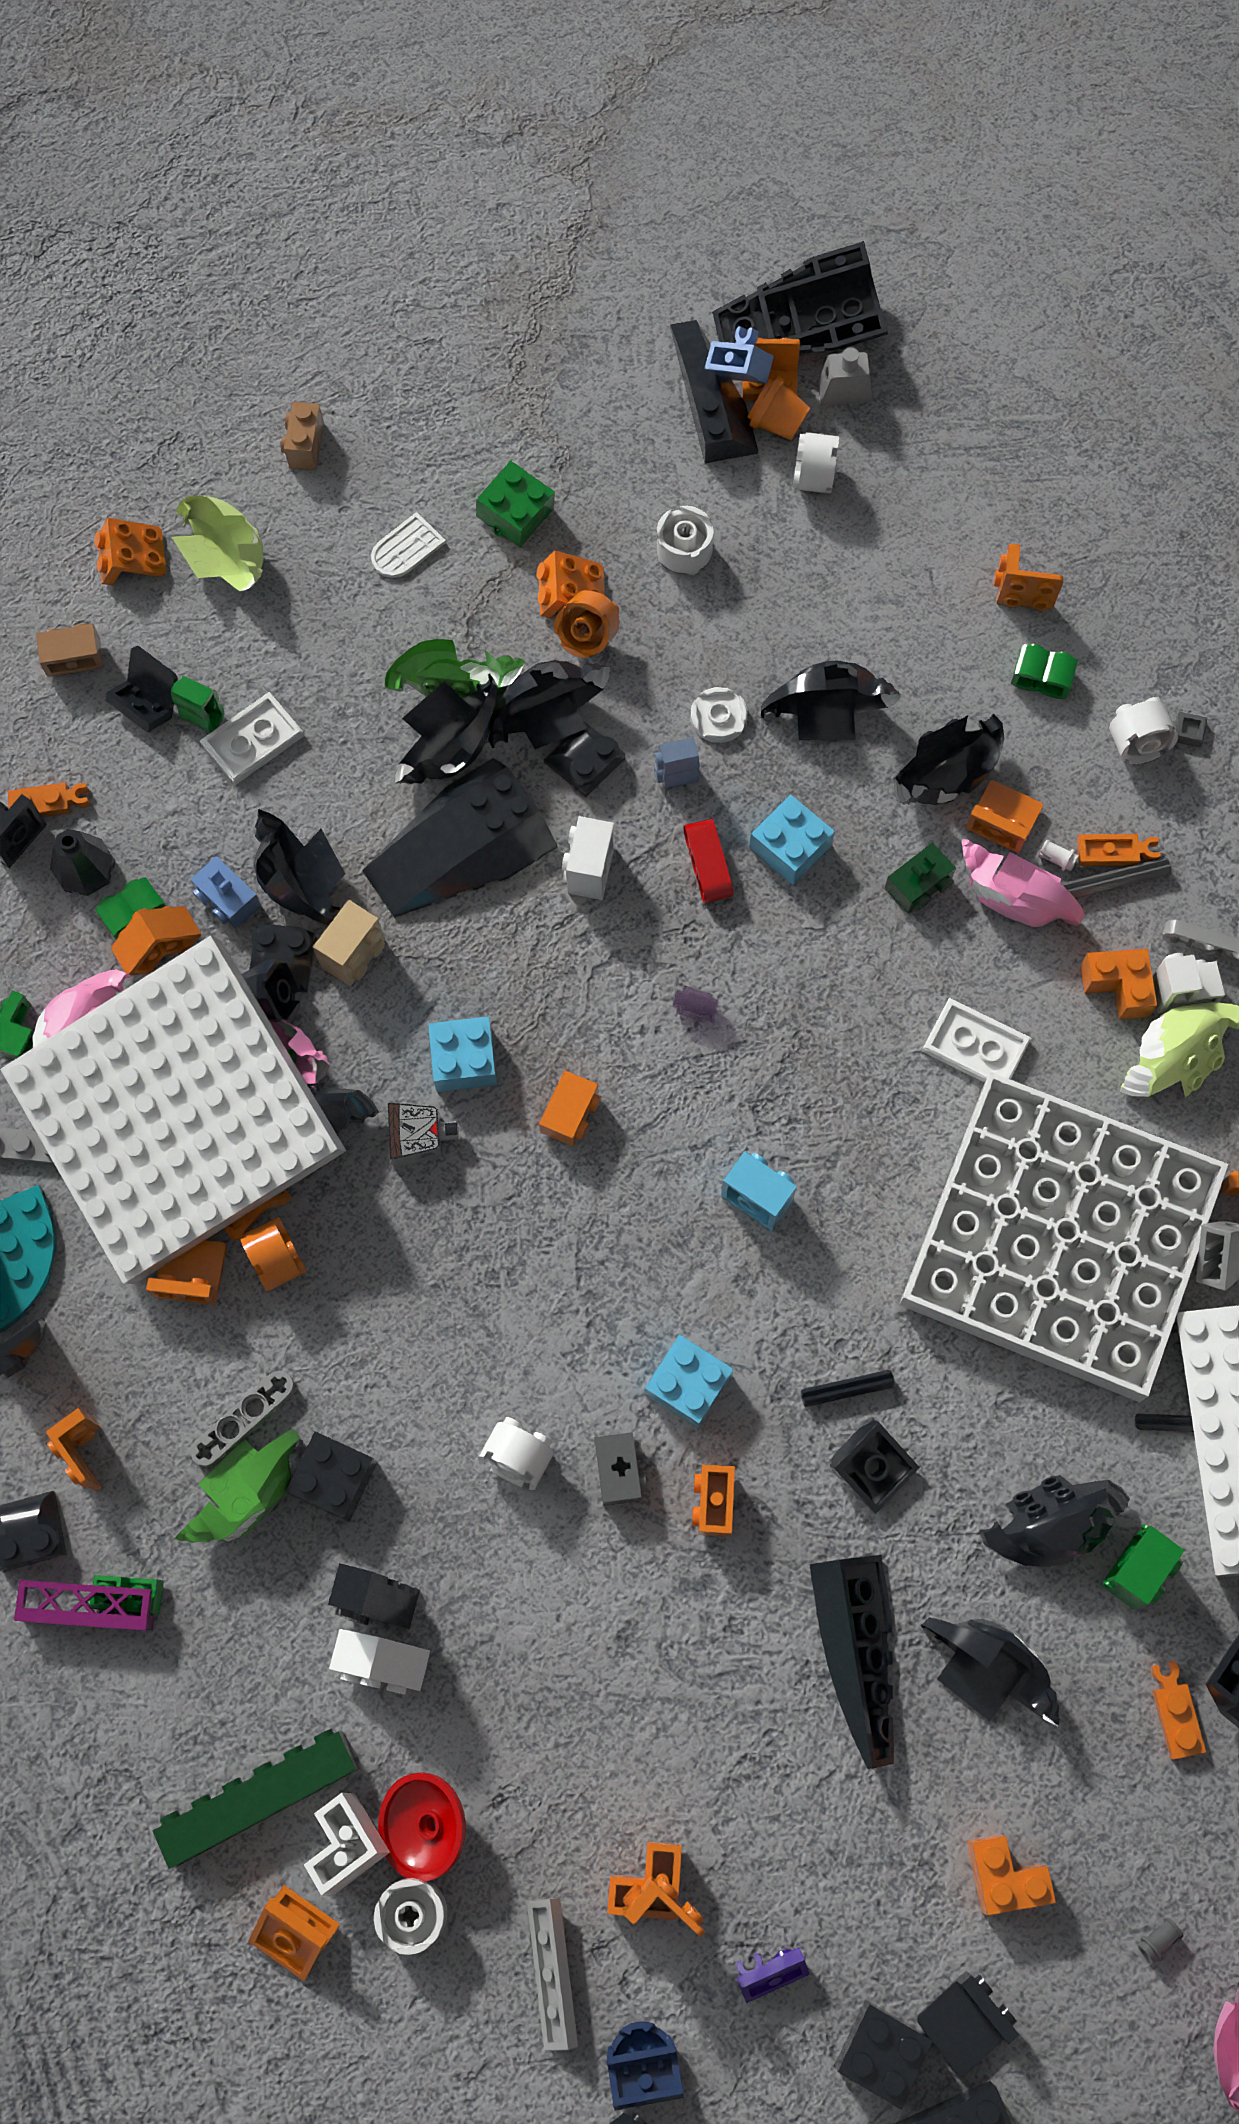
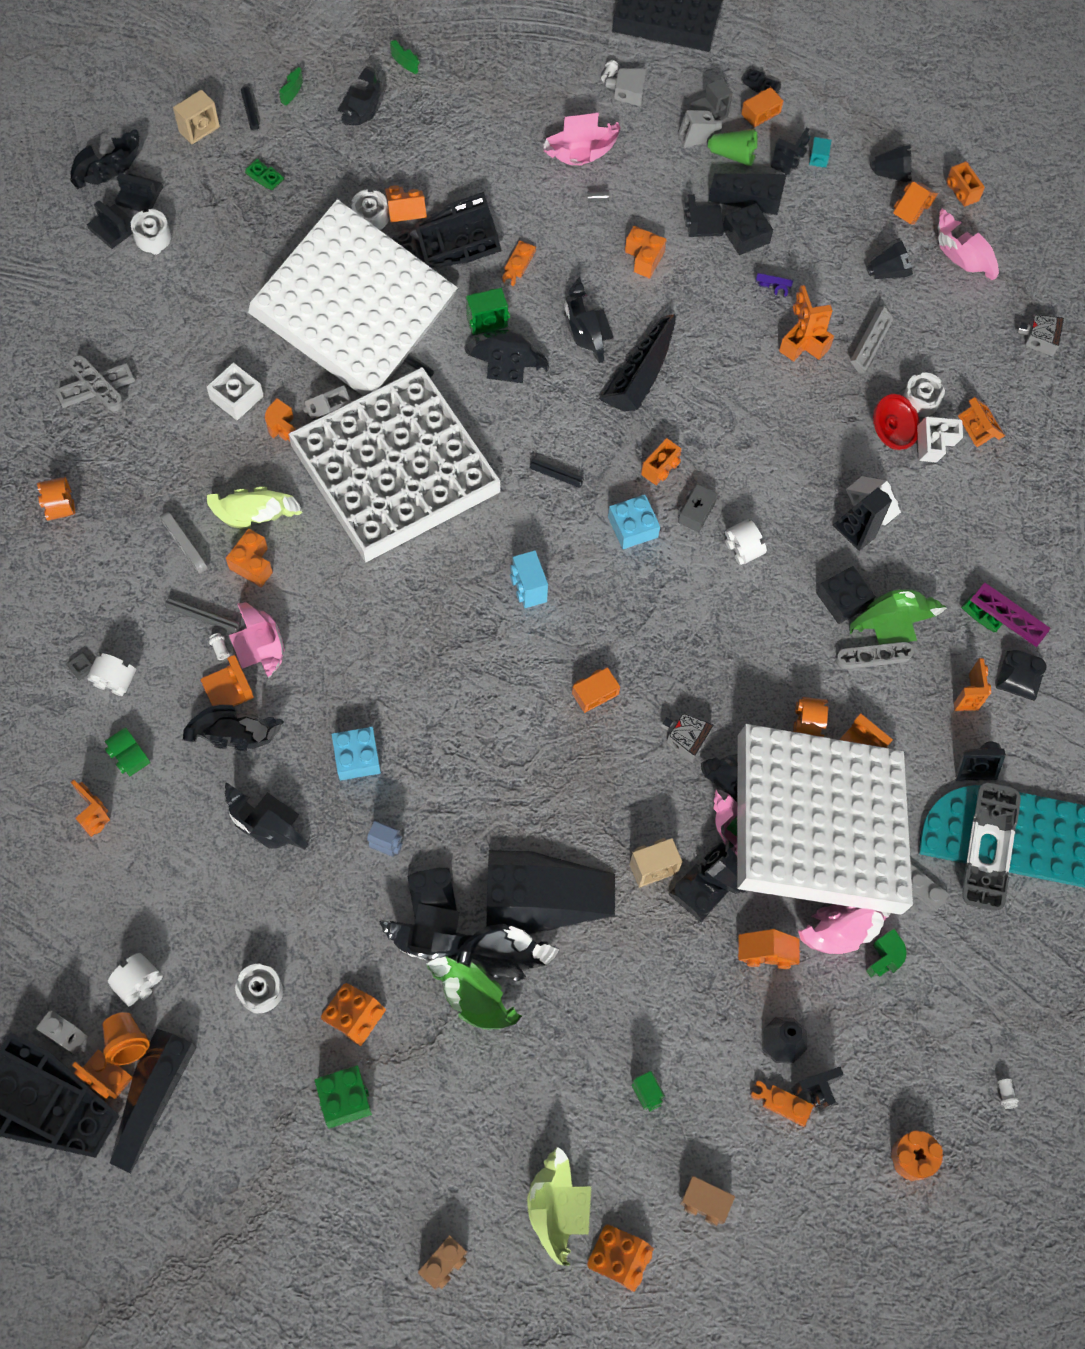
camera: 150 degrees left, 5 degrees down
(118, 909) = (771, 983): green brick -> none
(146, 693) = (677, 1128): black bracket -> none
(225, 893) = (708, 954): medium blue brick -> none
(252, 738) = (624, 1053): white tile -> none
(255, 1799) = (968, 484): dark green brick -> none
(294, 873) = (657, 930): black animal -> none
(405, 547) = (433, 1126): white window -> none
(462, 1054) = (632, 759): medium azure brick -> none
(587, 623) = (366, 968): orange brick -> none
(589, 857) = (480, 817): white brick -> none
(643, 2067) = (854, 286): dark blue slope -> none
(695, 1004) = (483, 700): clear purple brick -> none
(708, 860) = (411, 776): red beam -> none
(719, 715) = (331, 864): white tile -> none
(741, 359) = (122, 1079): medium blue brick -> none
(873, 1465) = (573, 432): black slope -> none
(920, 878) = (304, 684): dark green brick -> none
(975, 1042) = (352, 584): white tile -> none
(1114, 849) = (187, 628): orange plate -> none
(1186, 981) = (220, 532): white brick -> none

